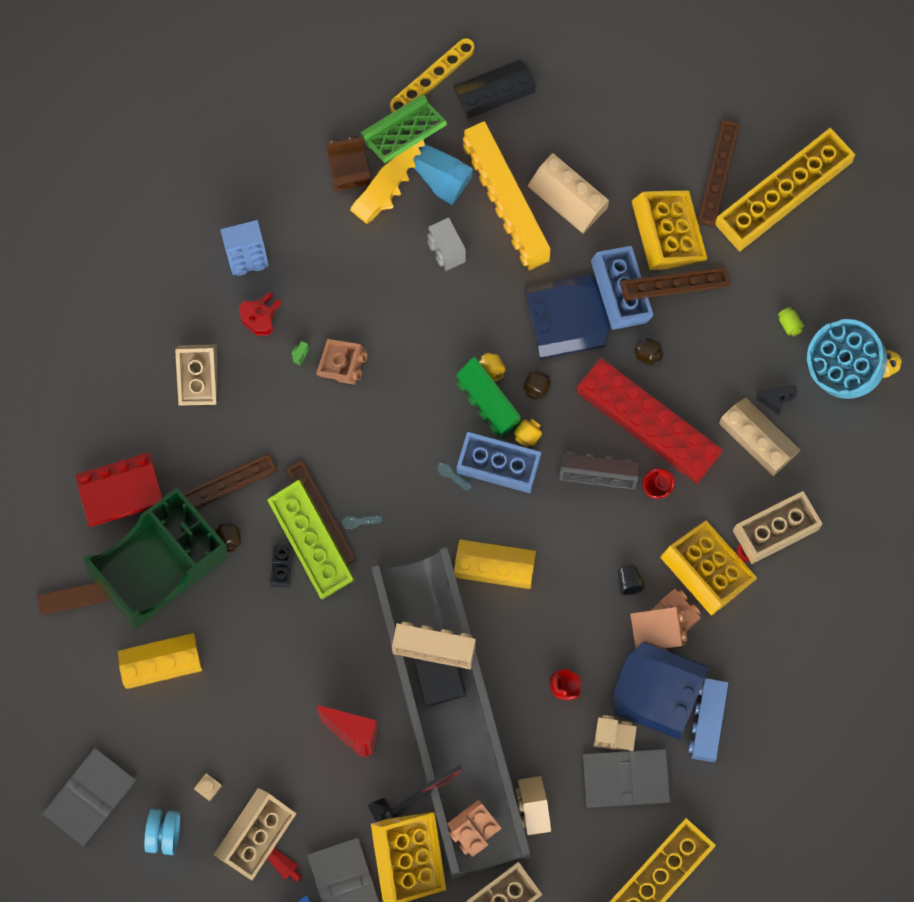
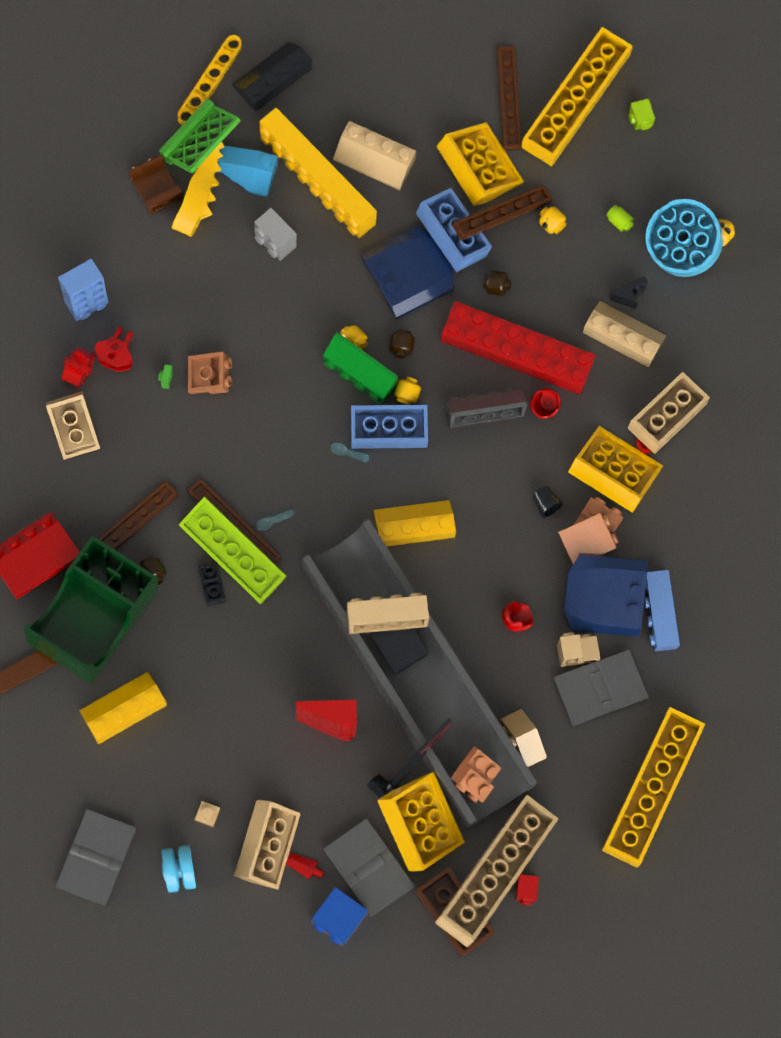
camera: 25 degrees left, 0 degrees up
(219, 319) = (78, 367): none -> red hinge
(723, 304) = (552, 220): none -> yellow head
(844, 225) = (641, 114): none -> lime brick

